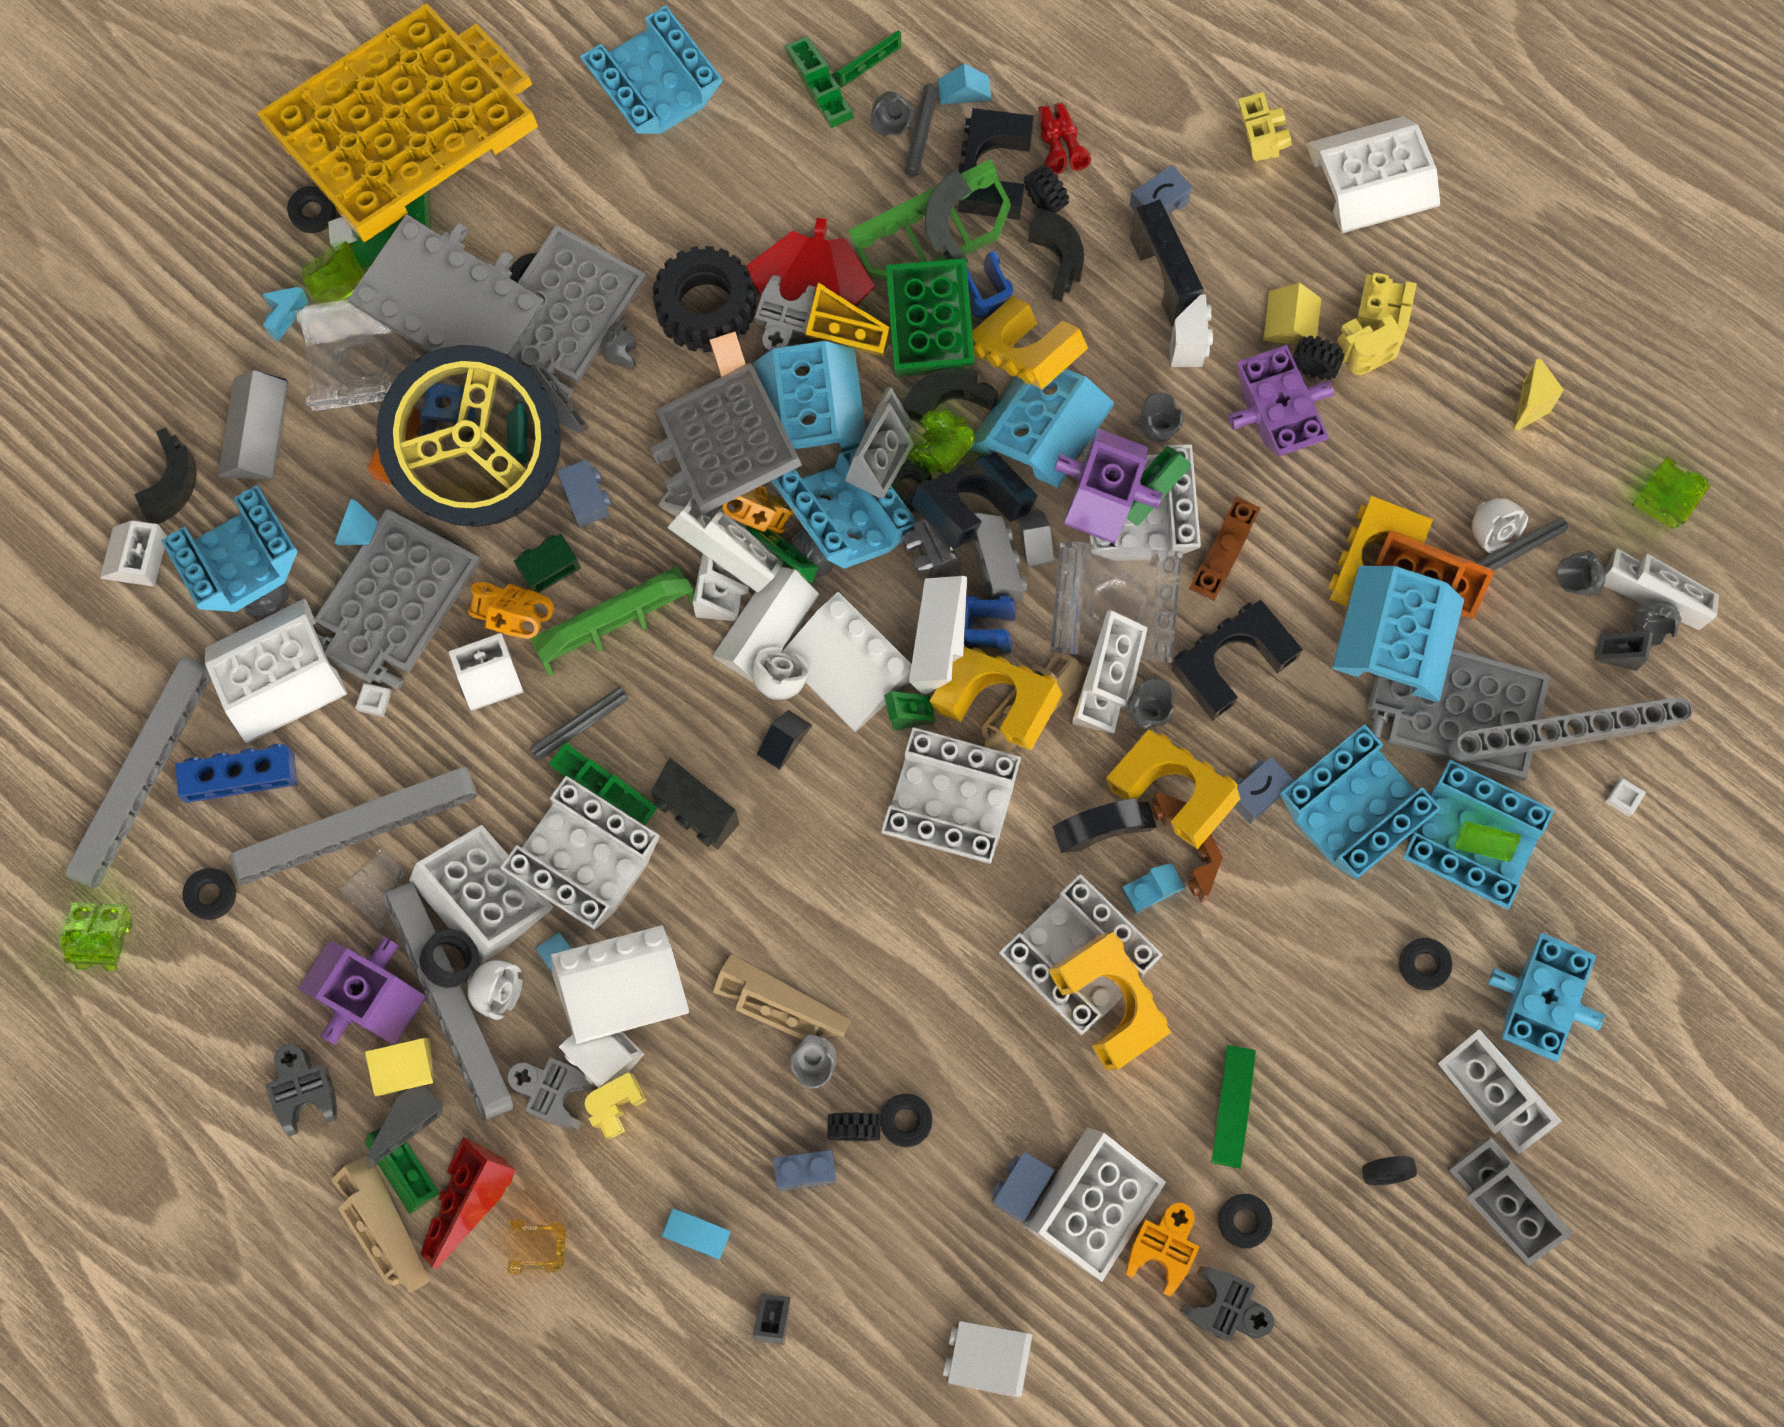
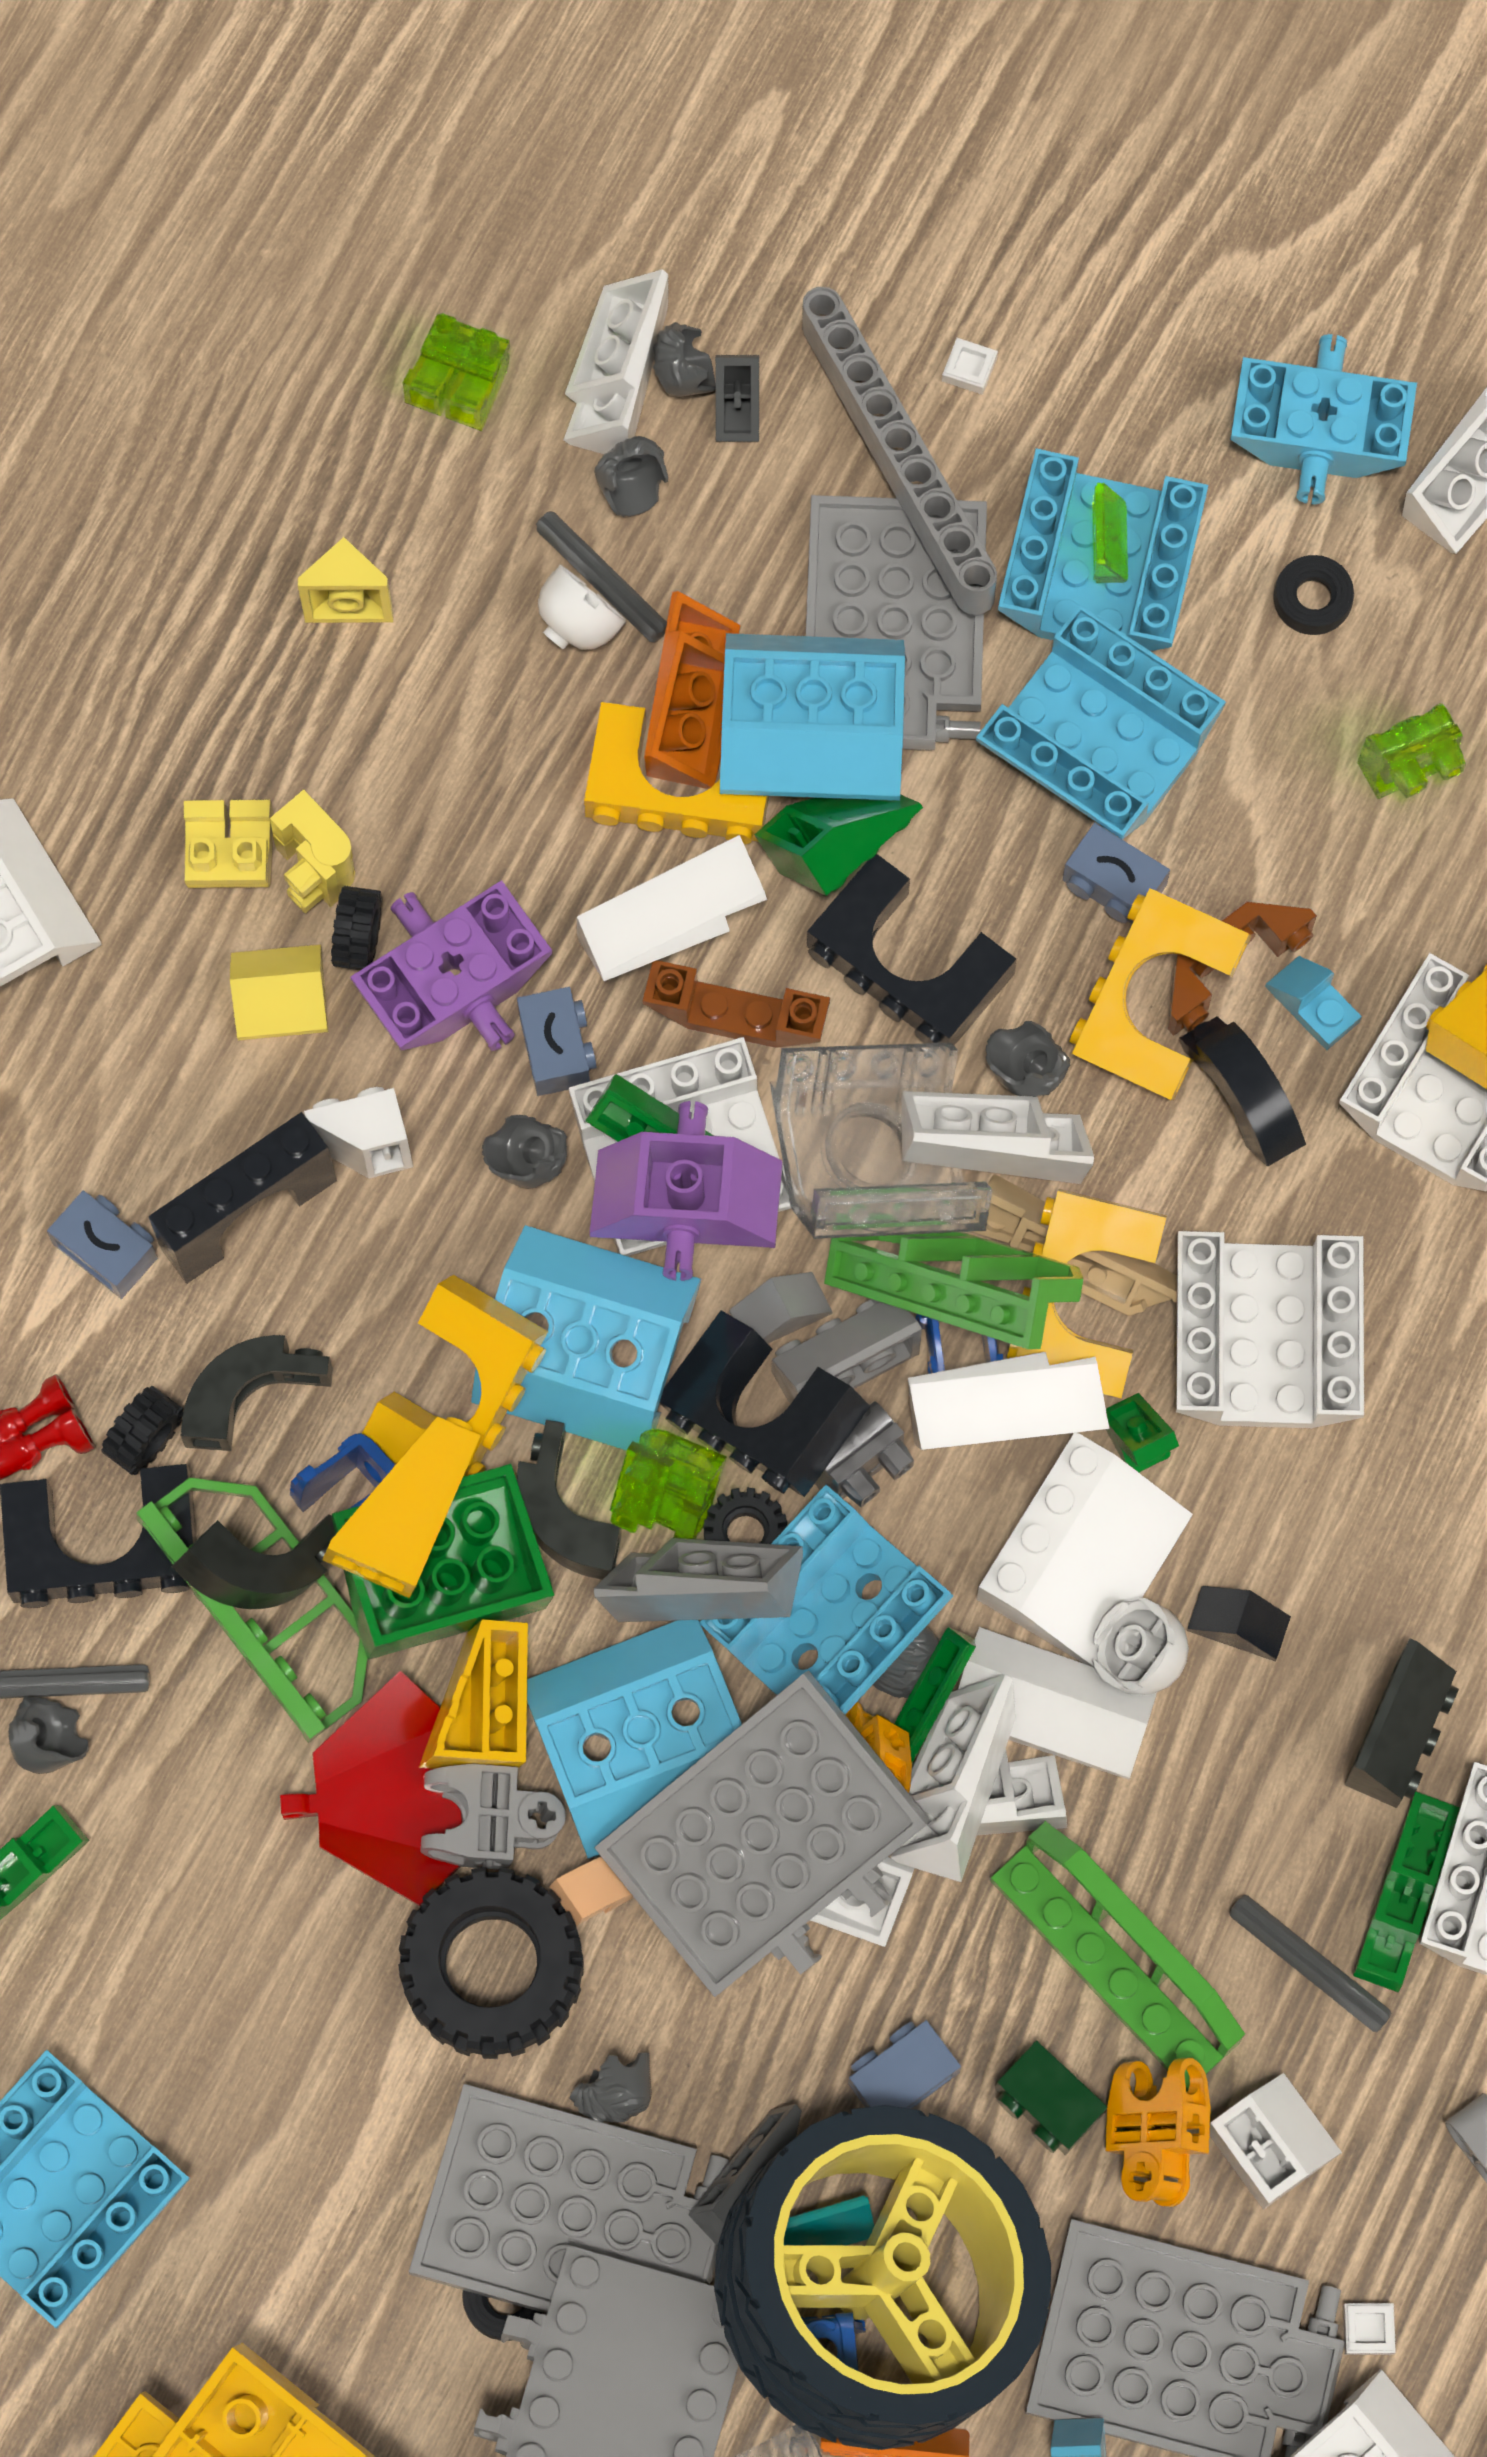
camera: 105 degrees left, 0 degrees up
(954, 291) = (403, 1515): none -> yellow slope
(1008, 600) = (955, 1297): none -> bright green plate
(1226, 451) = (554, 1040): none -> sand blue brick
(1288, 524) = (670, 910): none -> white slope
(1304, 984) = (1412, 752): none -> clear neon green hips
(1317, 623) = (829, 838): none -> green slope

